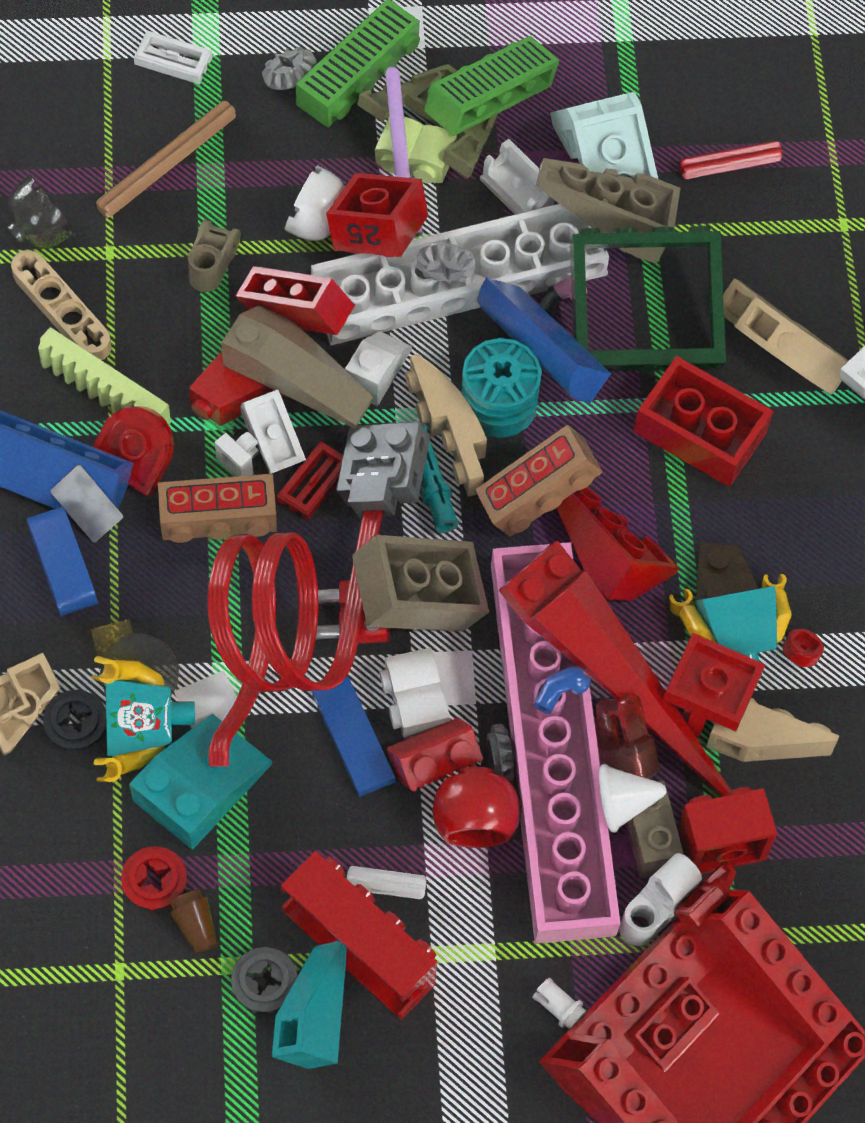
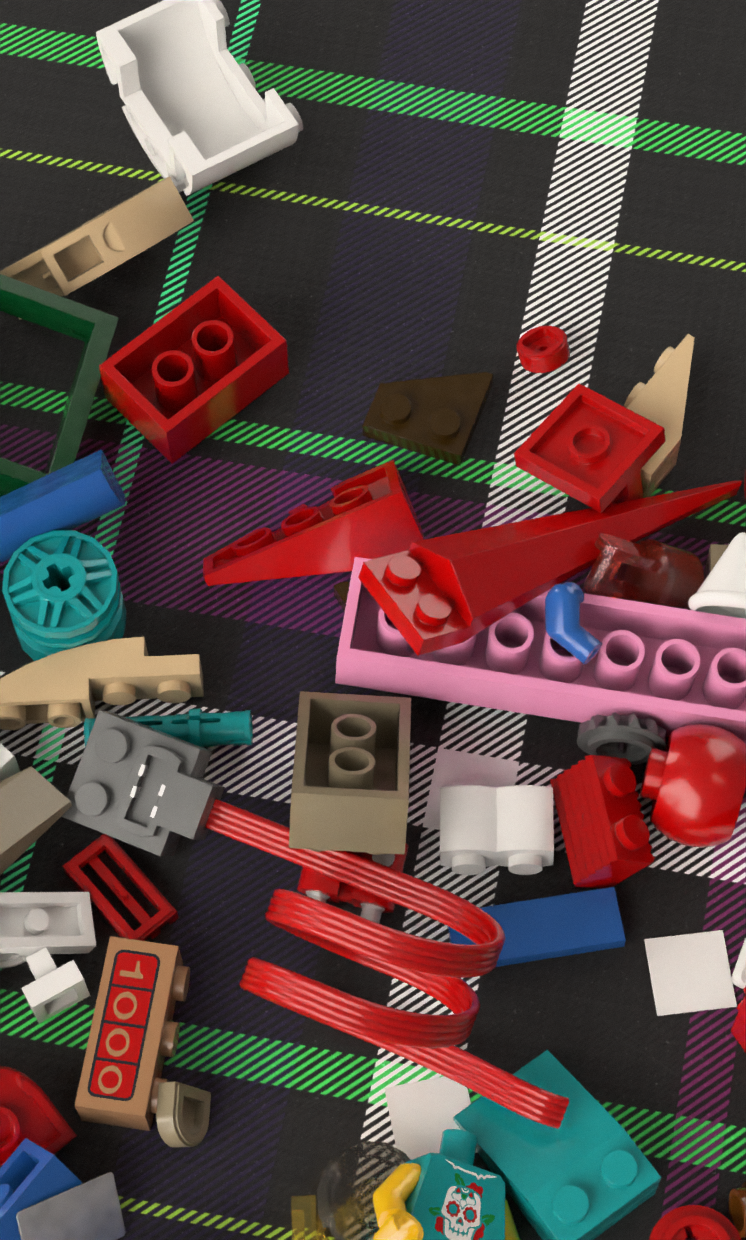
camera: 70 degrees left, 0 degrees up
(172, 550) = (182, 1114): none -> dark tan tile
(351, 841) = (690, 973): none -> white sticker
(539, 481) = (236, 583): medium nougat brick -> none
(740, 621) = (495, 405): teal torso -> none

